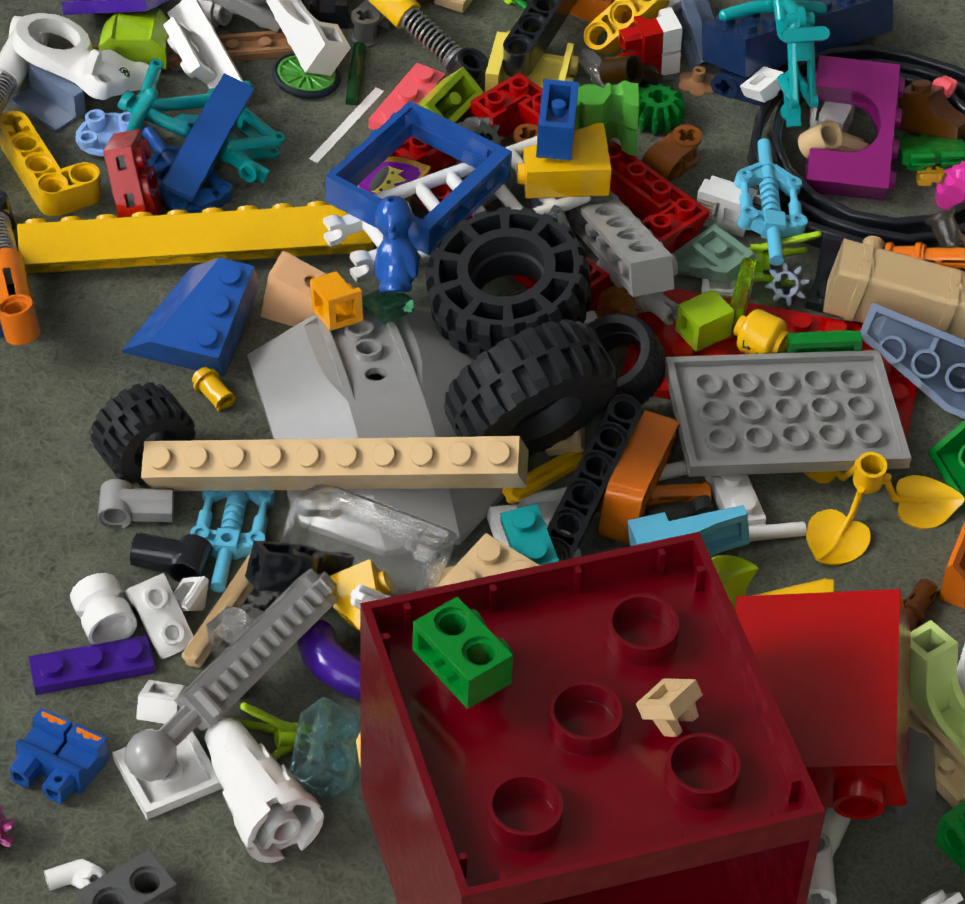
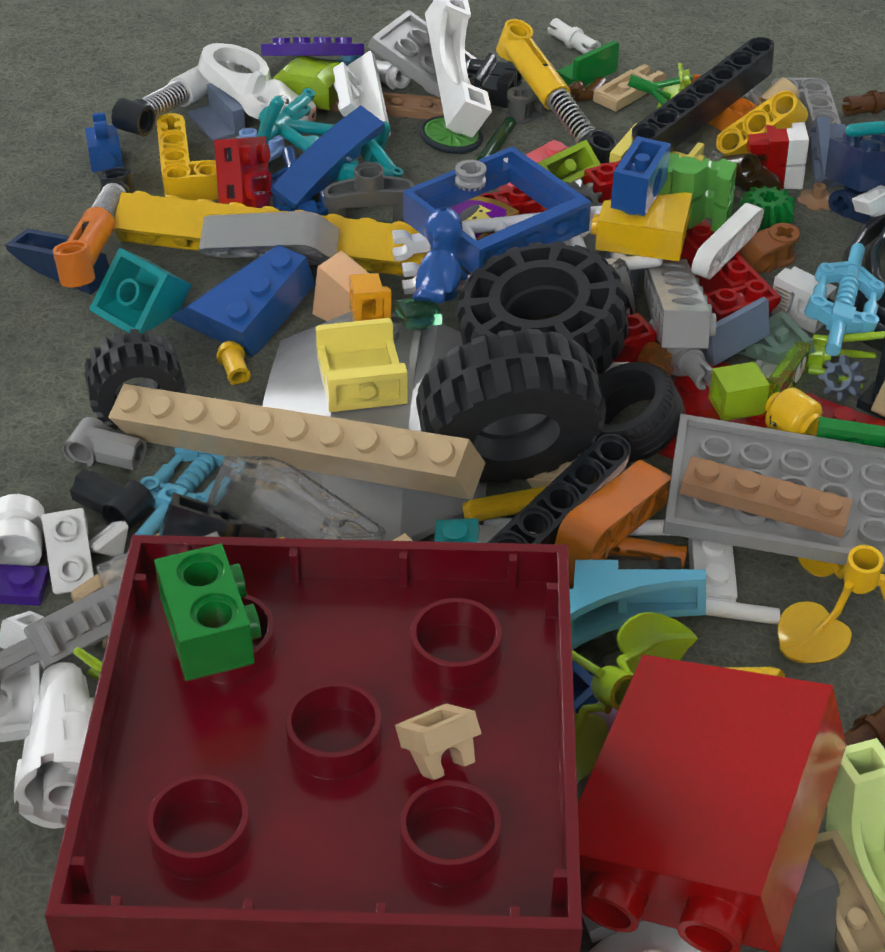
camera: 20 degrees right, 5 degrees down
(82, 334) = (138, 293): none -> teal slope
(183, 248) = (258, 232): none -> light grey beam
(266, 169) = (367, 190): none -> dark grey connector
(366, 376) = (360, 365): none -> light yellow panel
(383, 152) = (470, 175): none -> light grey bush
(645, 163) = (727, 241): none -> white beam
(689, 252) = (738, 331): none -> sand blue panel
(768, 423) = (766, 496): none -> medium nougat plate

